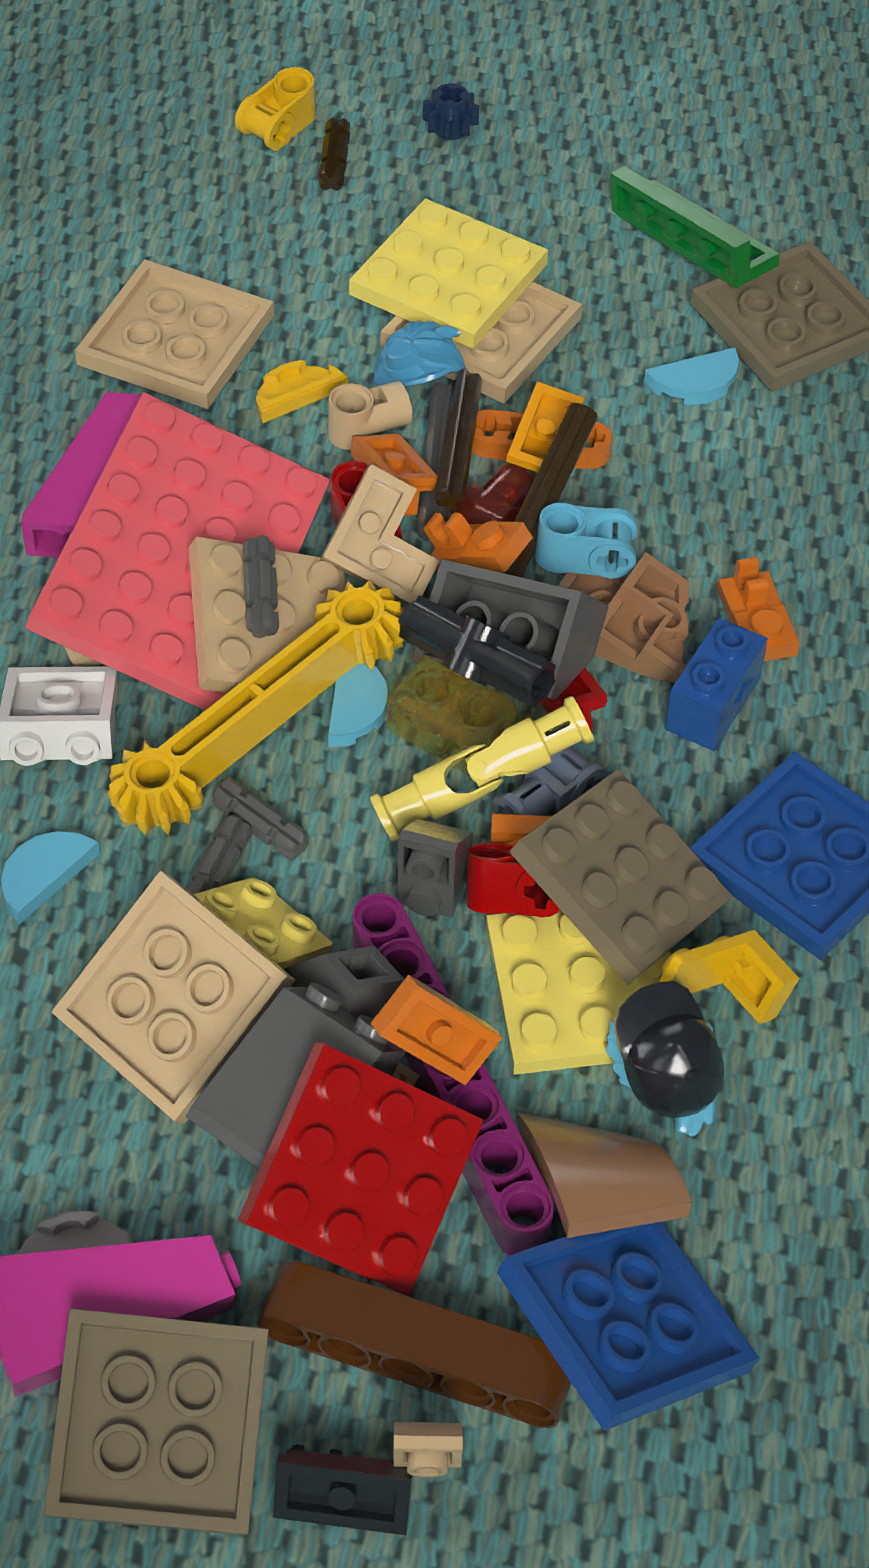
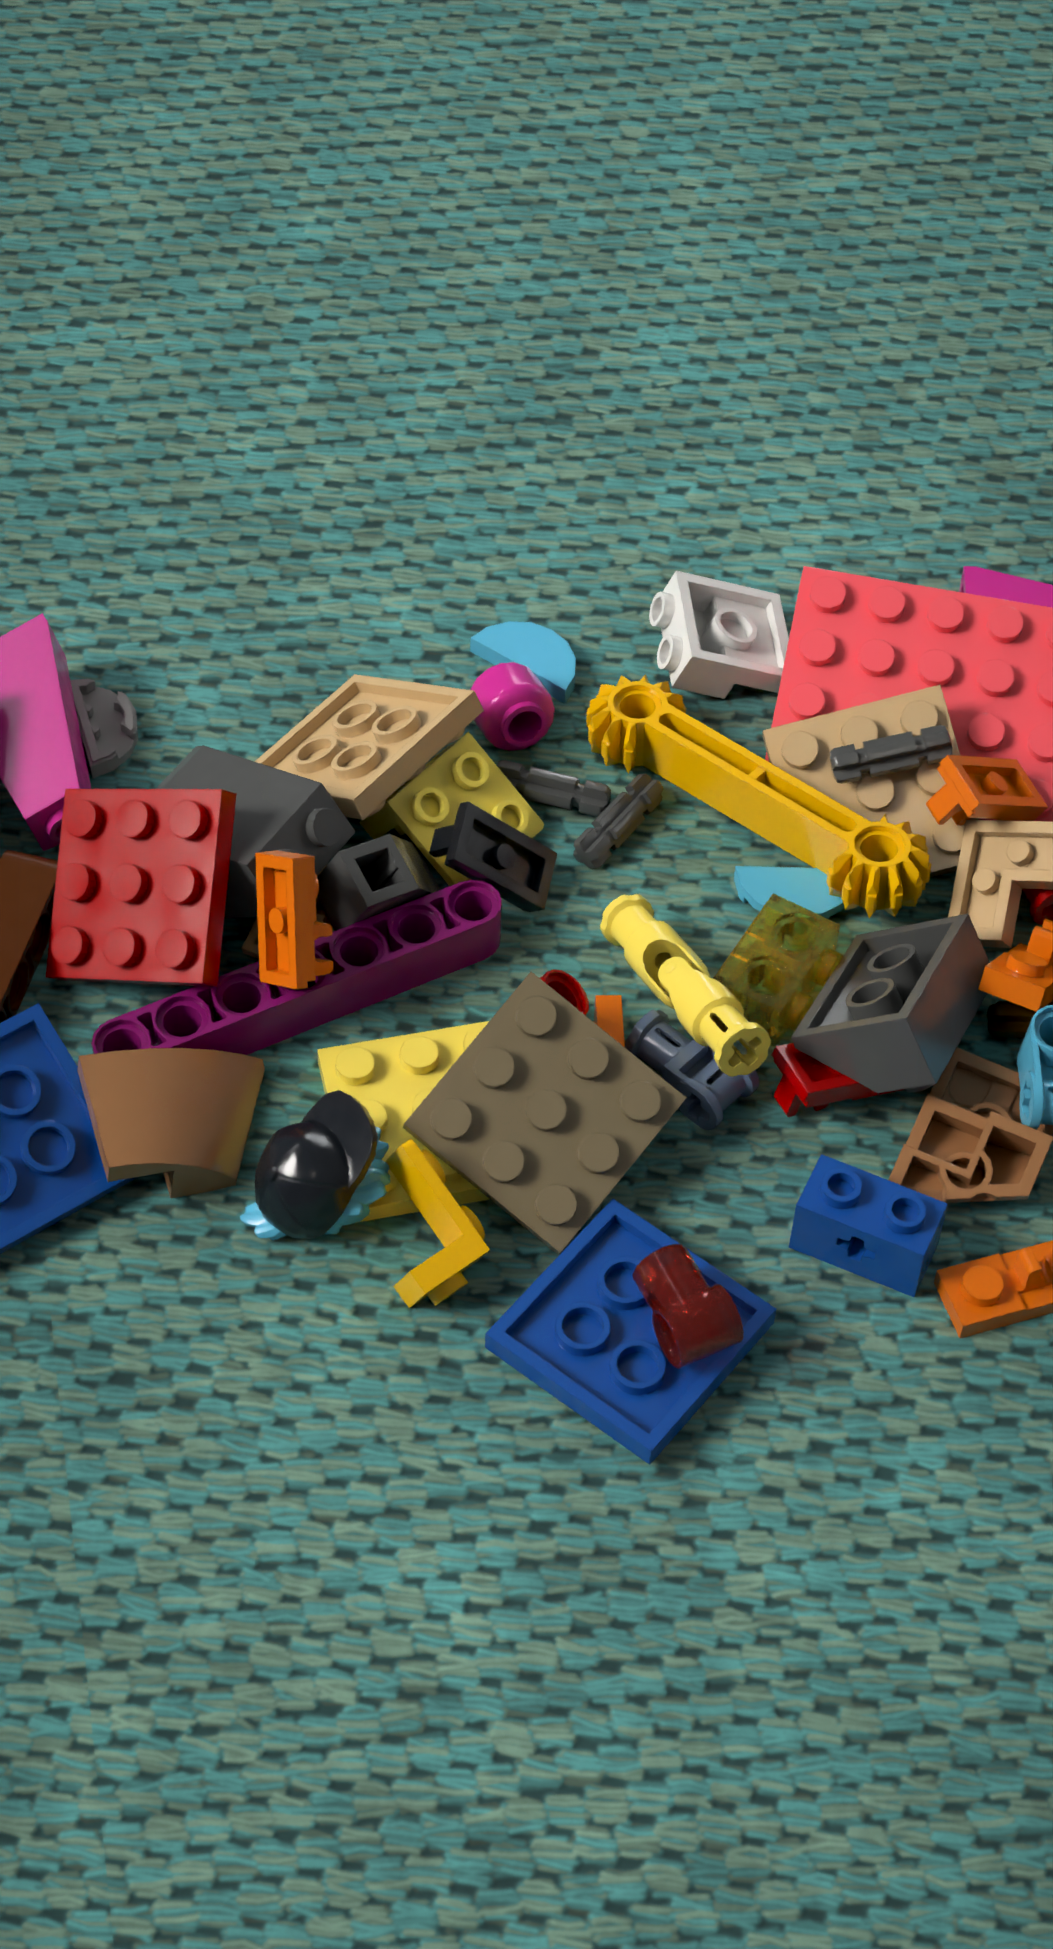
camera: 85 degrees right, 0 degrees up
(115, 880) = (514, 706): none -> dark pink head
(309, 530) = (984, 790): none -> orange plate
(325, 896) = (498, 855): none -> black plate
(432, 867) = (556, 936): dark grey slope -> none
(477, 651) = (837, 957): black piece -> none
(818, 792) = (687, 1313): none -> clear red piece

